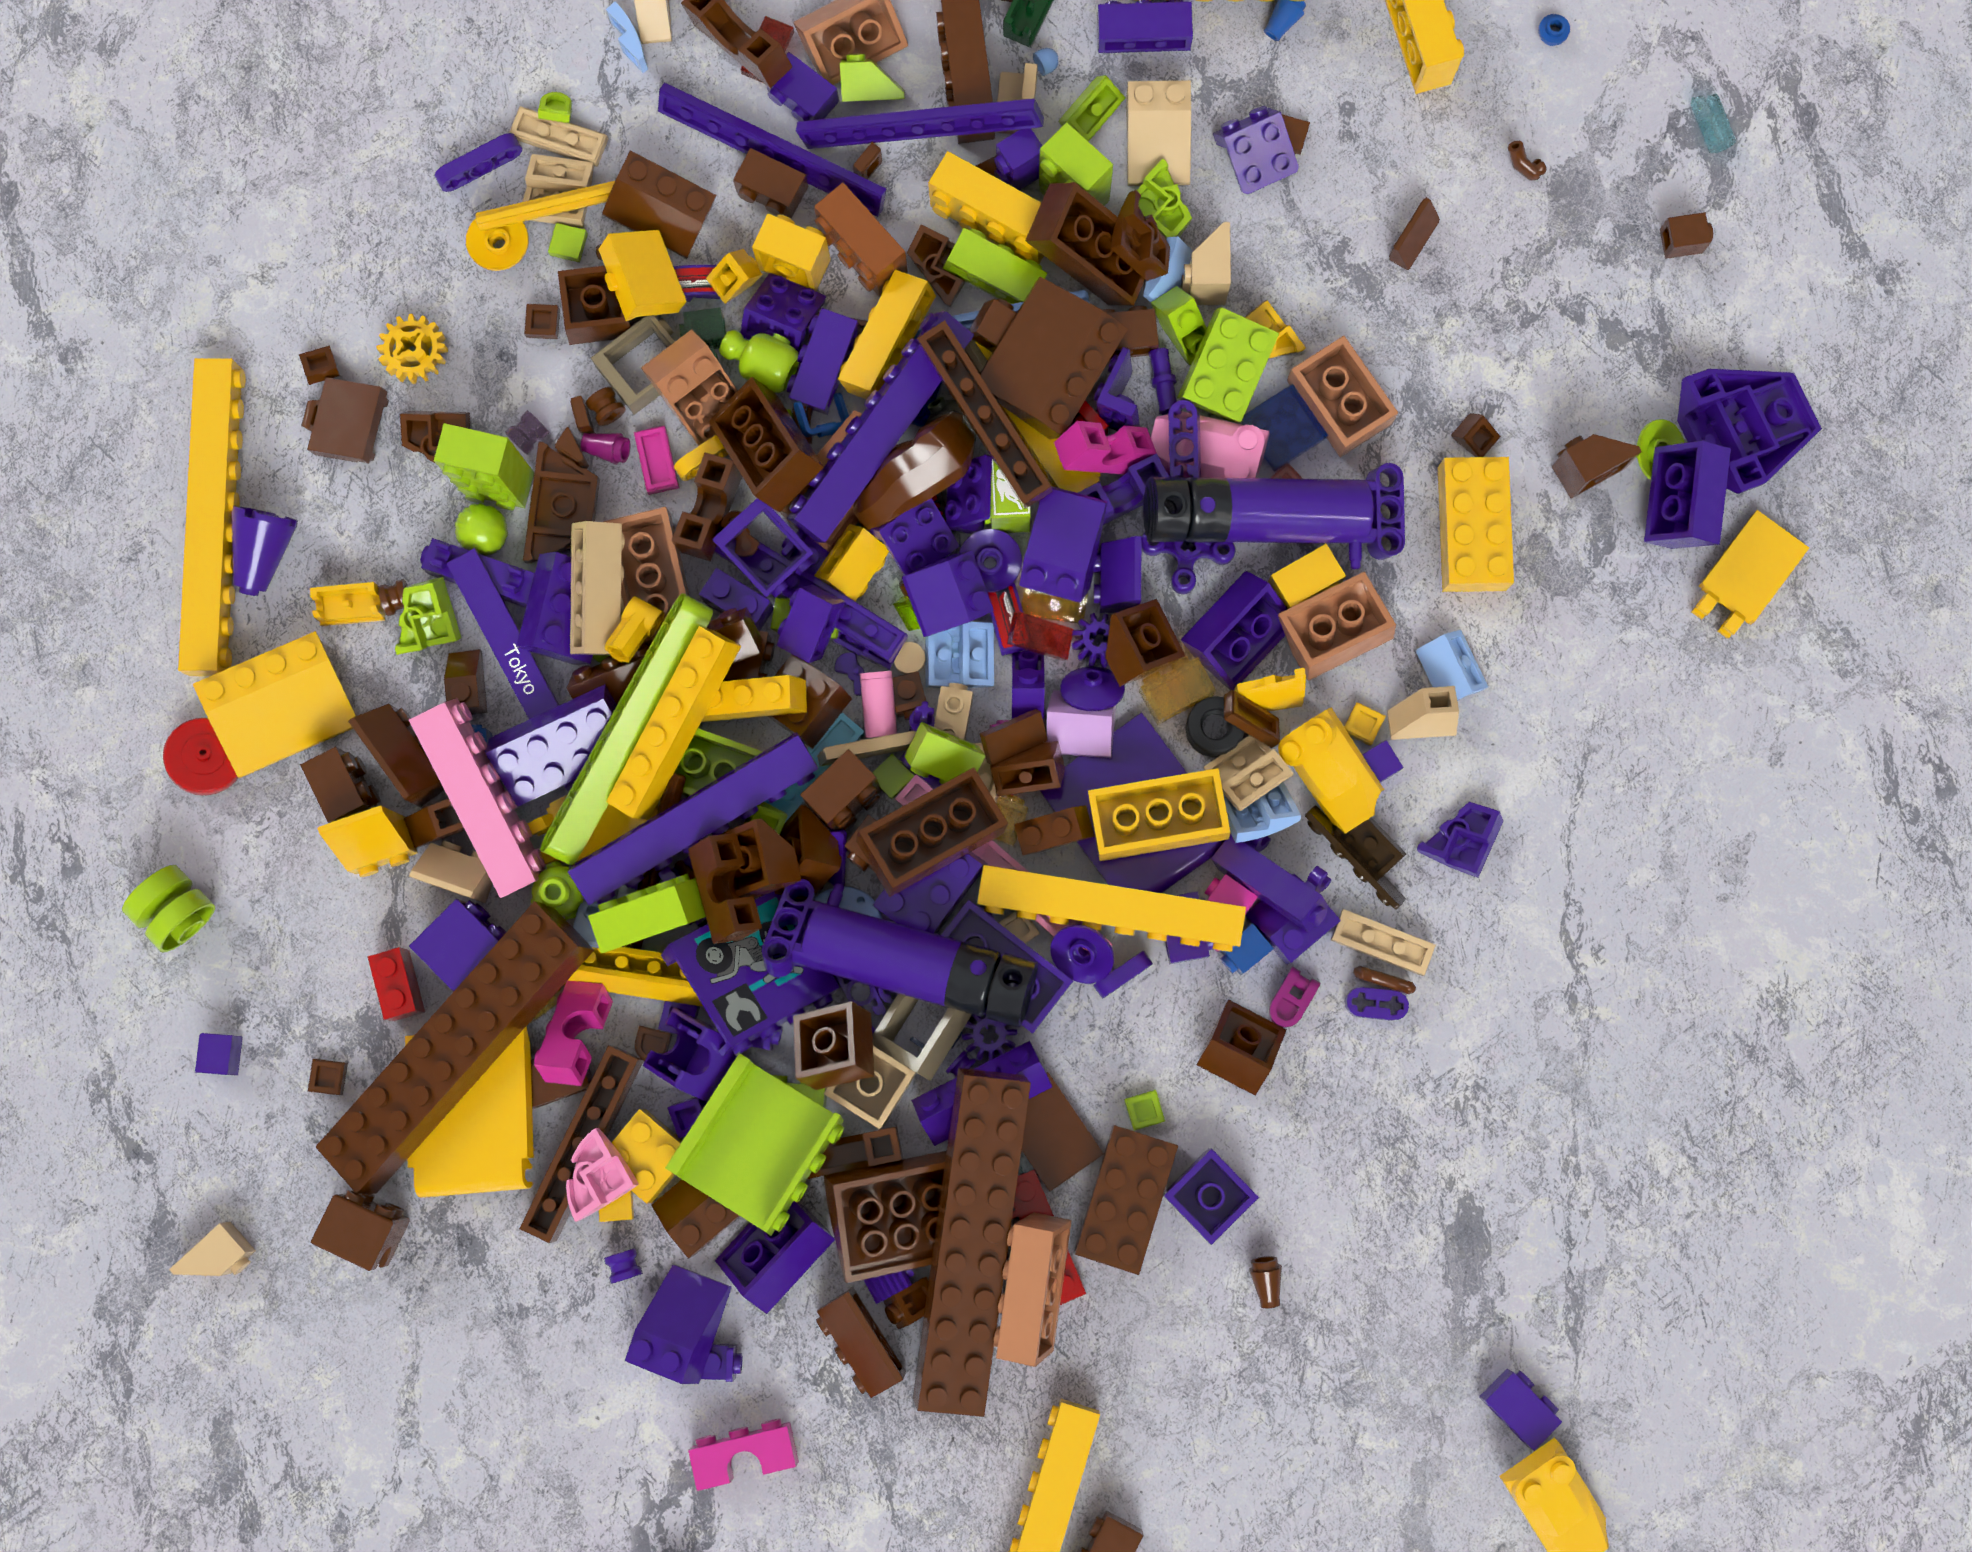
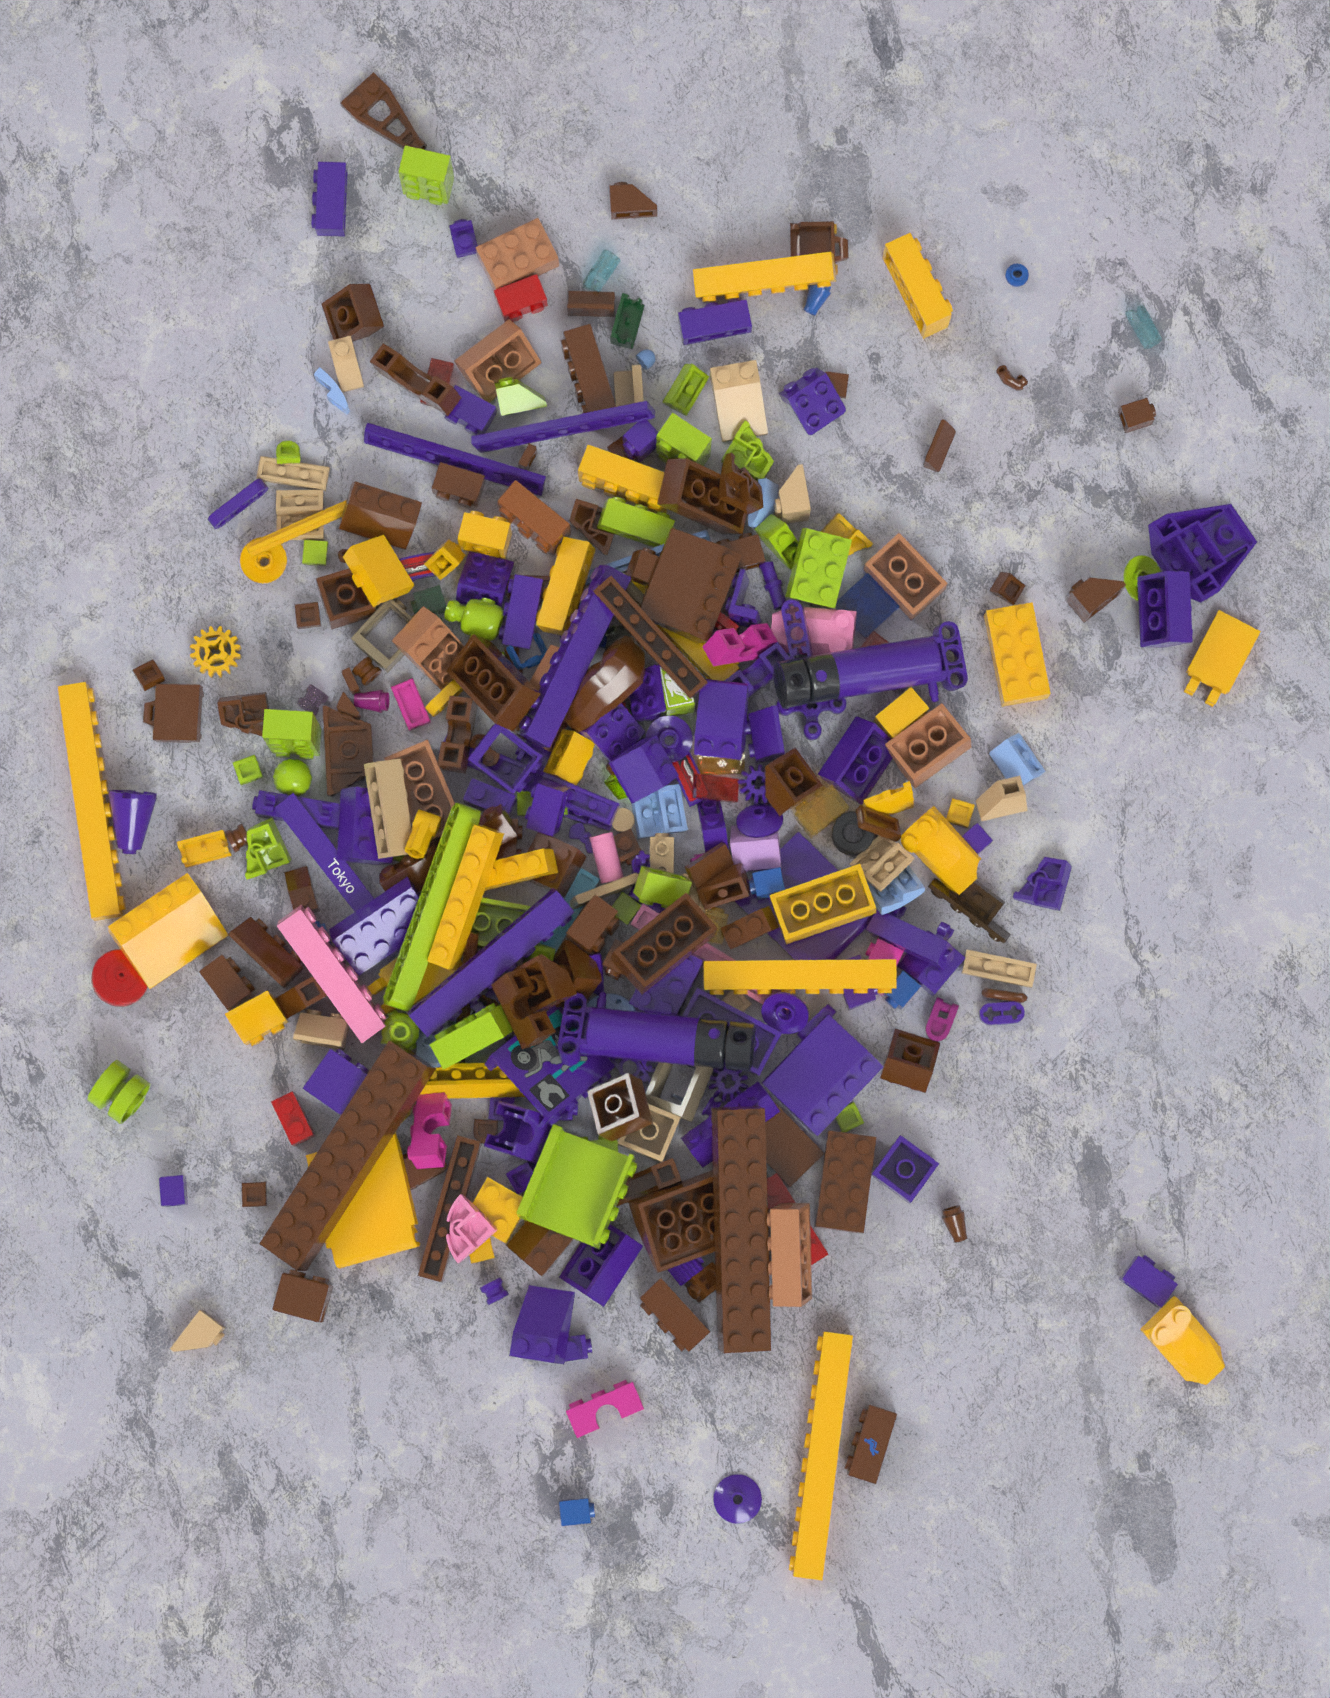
camera: 15 degrees left, 0 degrees up
(426, 510) = (247, 770): none -> lime tile
(1087, 774) = (766, 883): none -> blue brick
(1119, 1047) = (822, 1075): none -> dark purple slope

